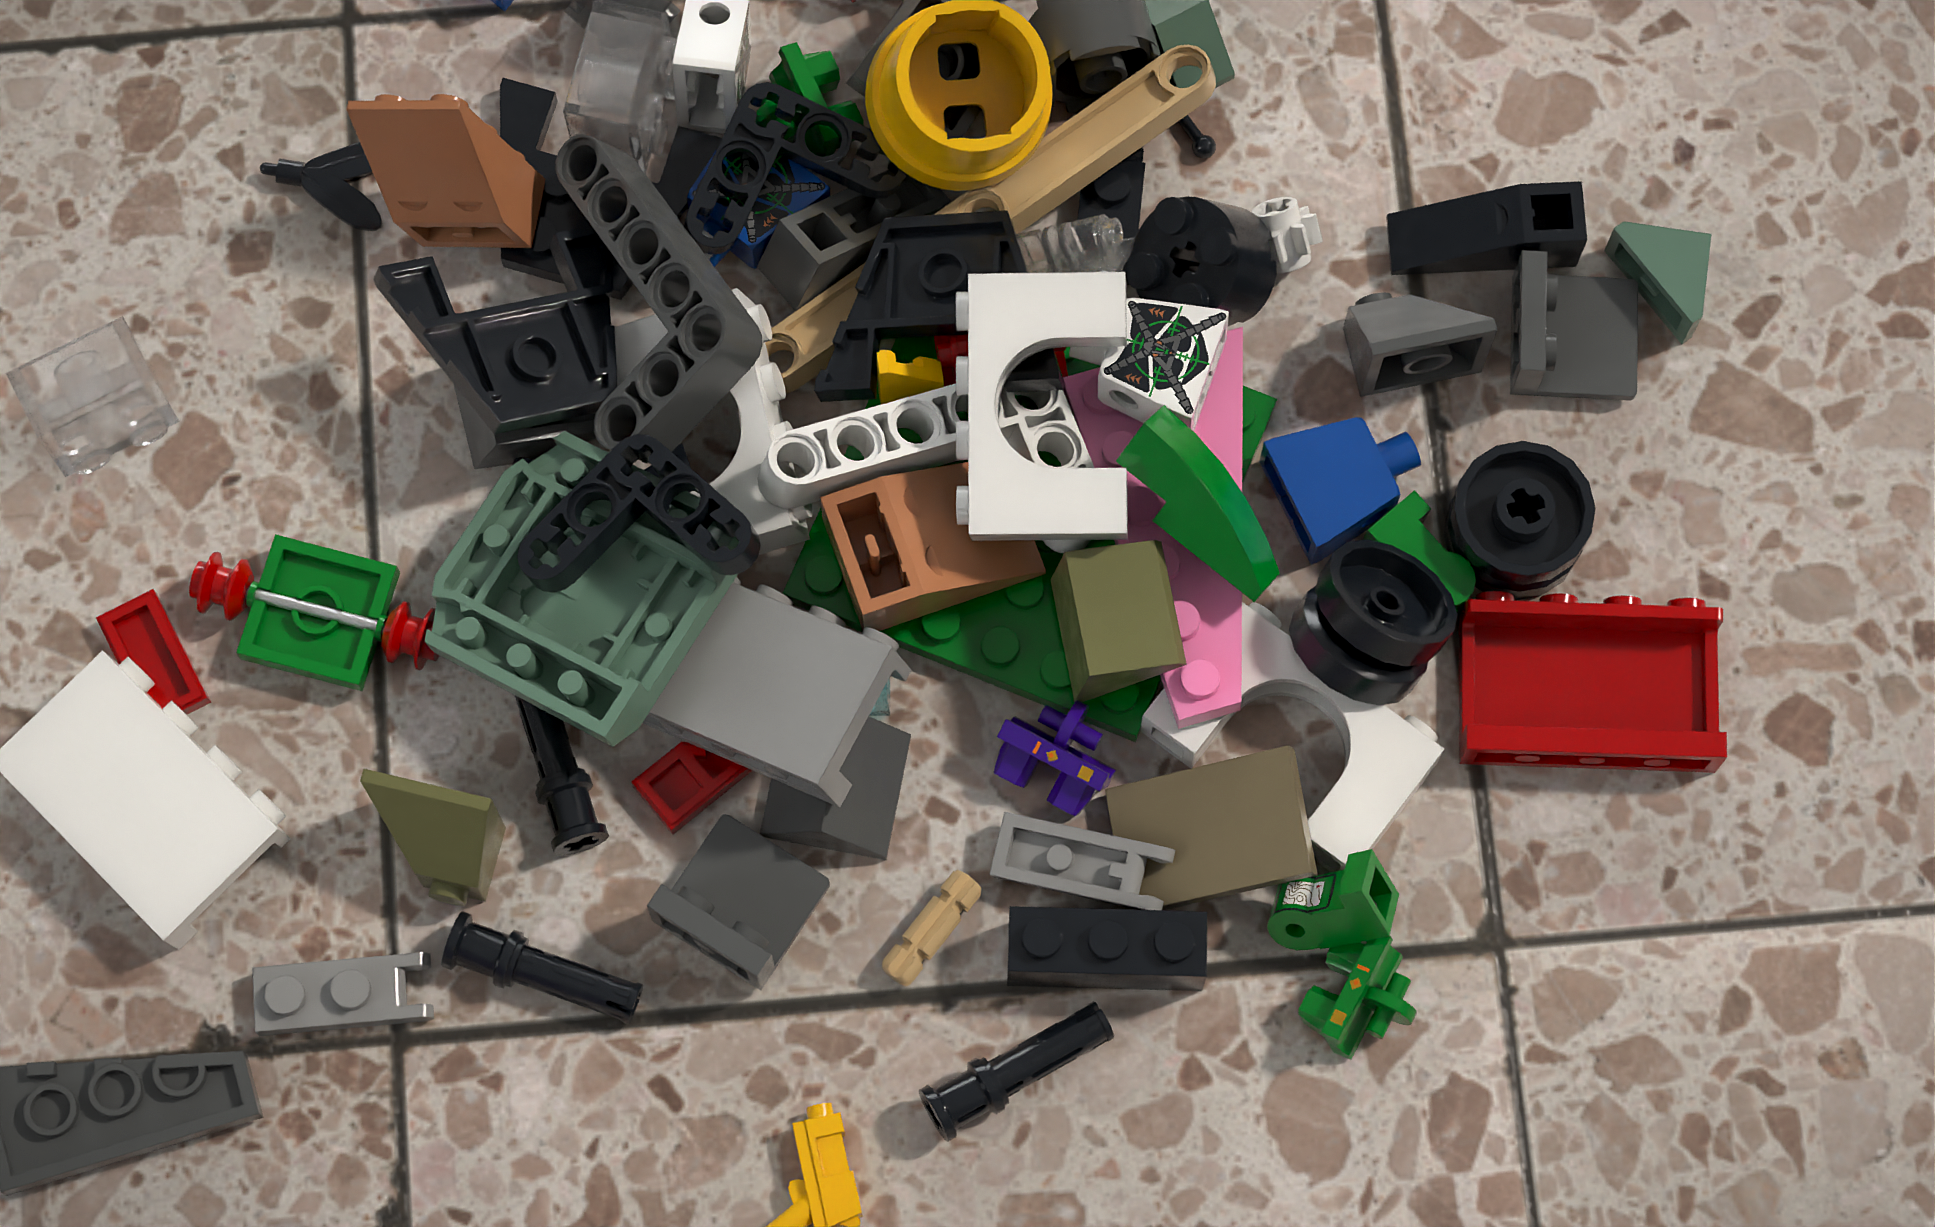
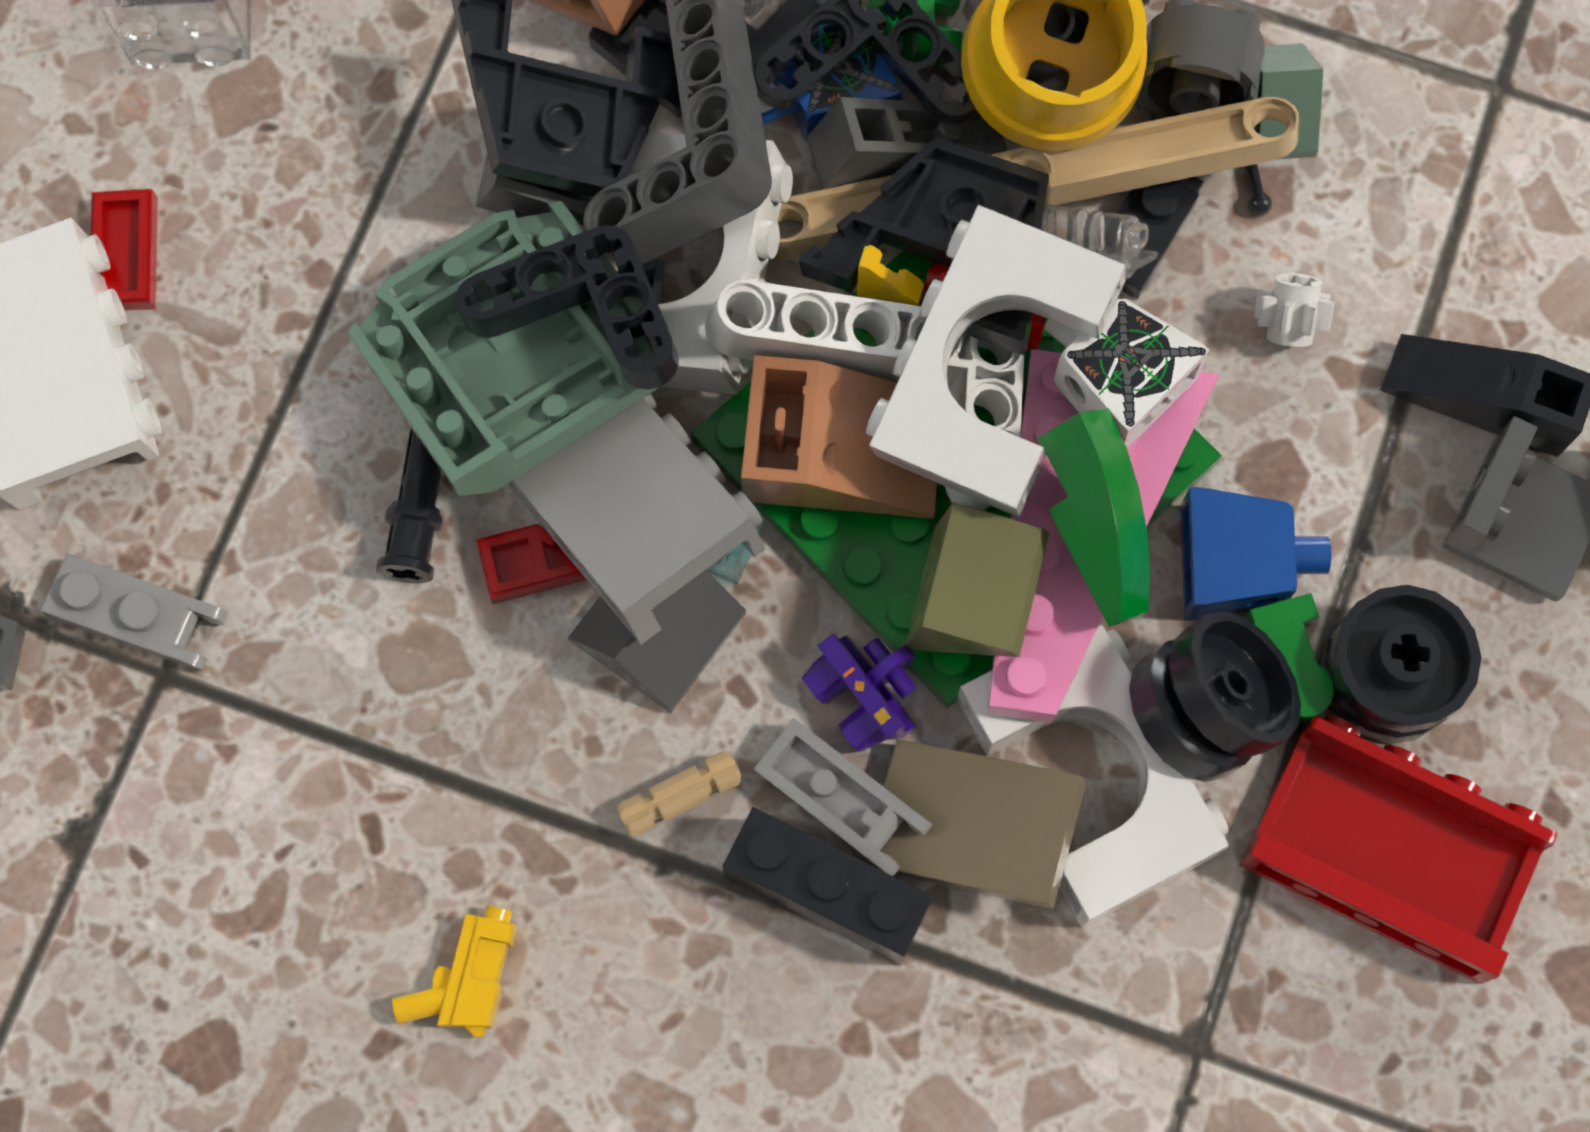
camera: 25 degrees right, 0 degrees up
(315, 611) = (275, 266): green plate -> none
(442, 832) = (279, 509): olive slope -> none
(513, 960) = (294, 651): black pin -> none
(740, 901) = (519, 690): dark grey bracket -> none
(991, 1082) = (663, 961): black pin -> none
(1203, 257) = (1213, 294): black brick -> none
(1335, 906) = (1058, 946): green leg -> none
(1367, 1001) = (1051, 1045): green hips -> none
(1413, 342) = (1374, 458): dark grey slope -> none

